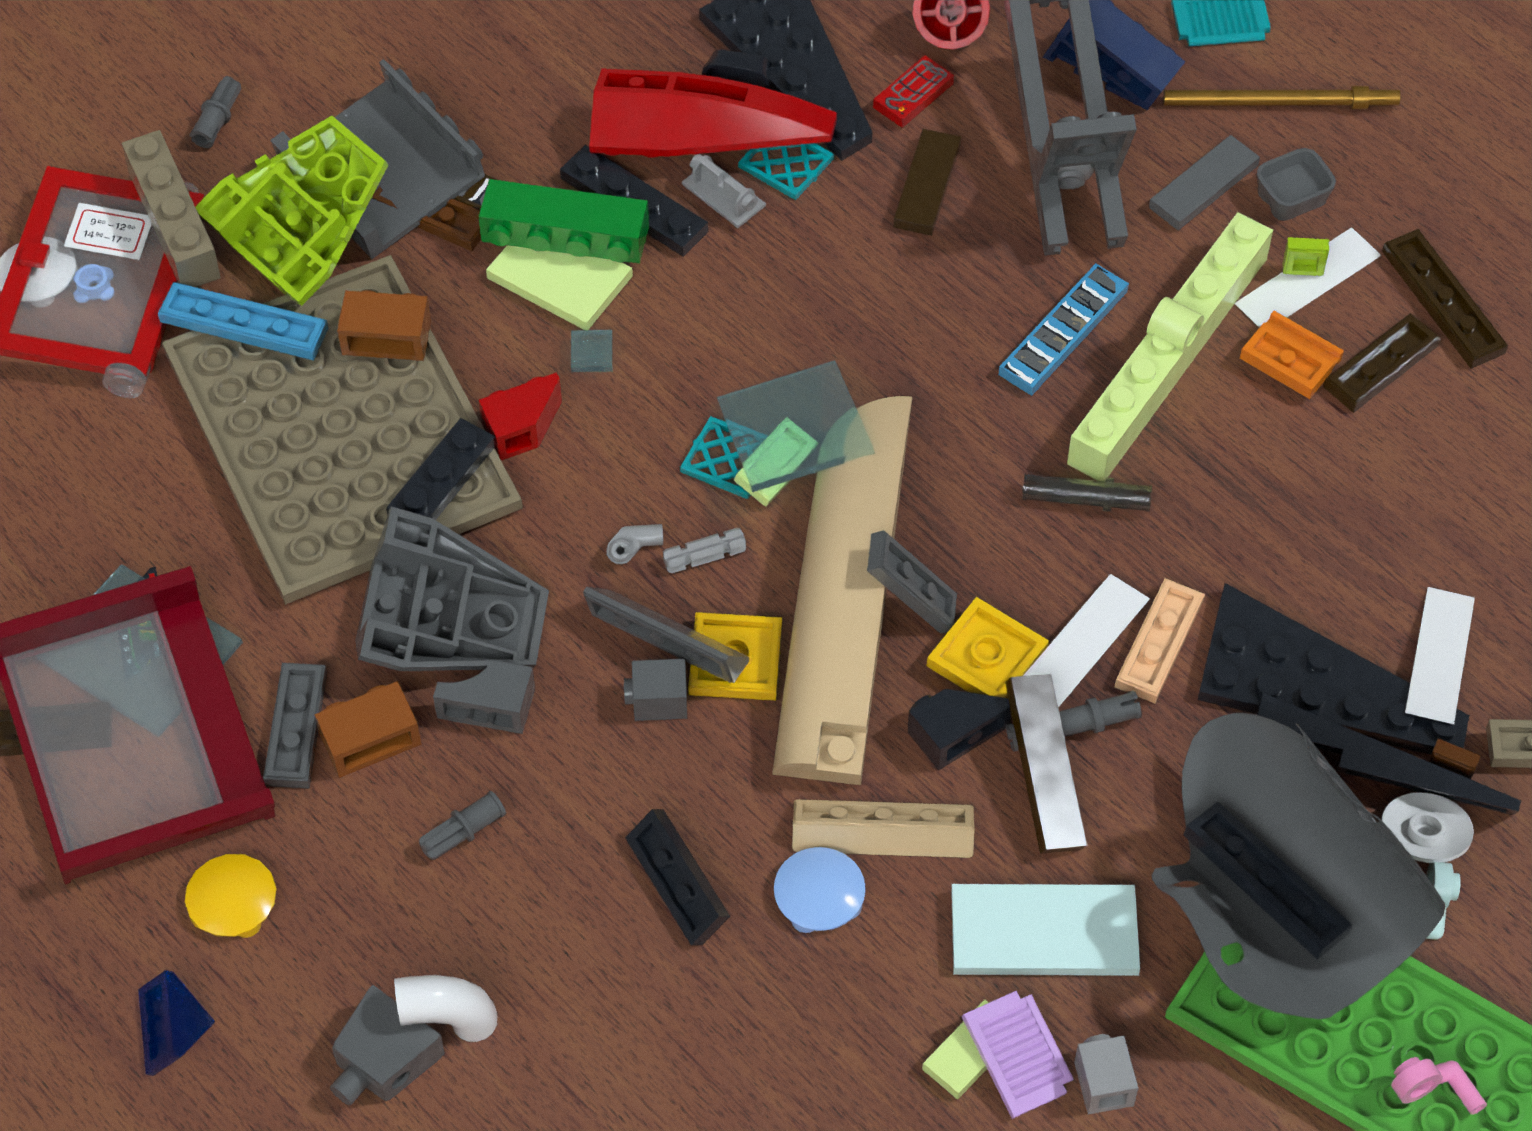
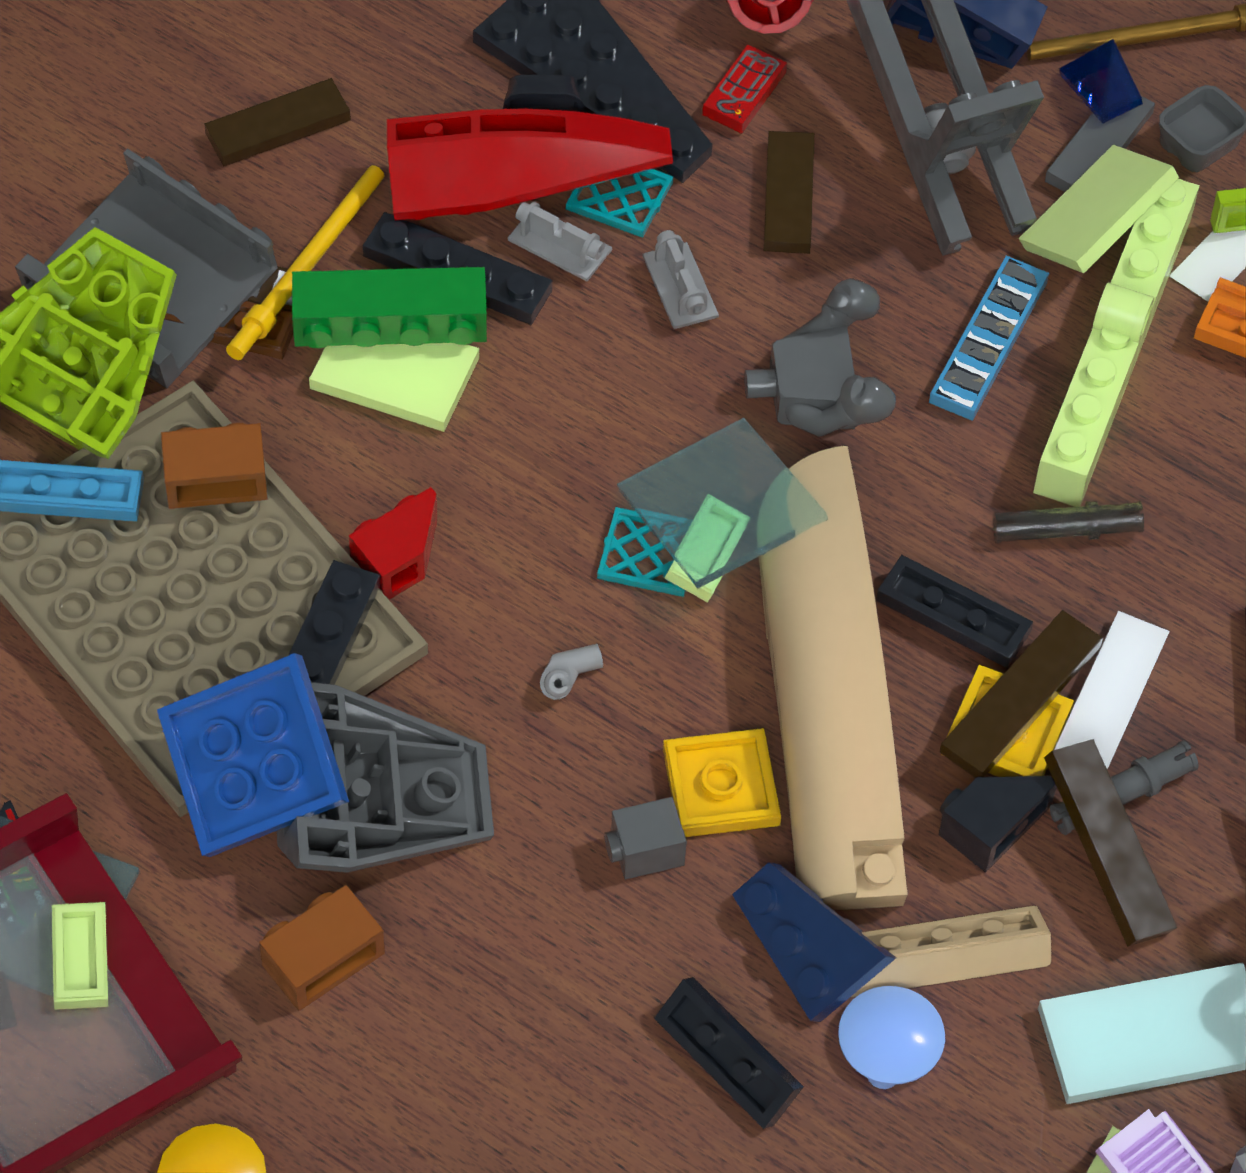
camera: 15 degrees left, 0 degrees up
(171, 699) = (79, 955): none -> yellowish green tile
(295, 726) = (231, 959): dark grey tile -> none
(346, 562) = (252, 755): none -> blue plate
(458, 213) = (262, 317): none -> yellow bar
(462, 826) = (462, 1040): dark grey axle -> none
(492, 699) = (455, 886): dark grey arch -> none
(519, 58) = (277, 122): none -> dark brown tile
(591, 351) = (457, 454): clear light blue tile -> none
(666, 633) = (638, 772): dark grey slope -> none
(704, 550) = (652, 665): light grey axle -> none
(768, 799) = (810, 944): none -> dark blue wing
(814, 240) = (679, 281): none -> light grey hinge
(904, 330) = (815, 373): none -> dark grey torso
(911, 581) = (909, 660): dark grey tile -> none
(969, 549) = (954, 611): none -> black plate
(1003, 627) = (1021, 695): none -> dark brown tile
(1159, 640) = (1192, 677): light nougat tile -> none
(1182, 235) = (1099, 208): none -> yellowish green tile
(1217, 132) = (1103, 82): none -> clear blue slope

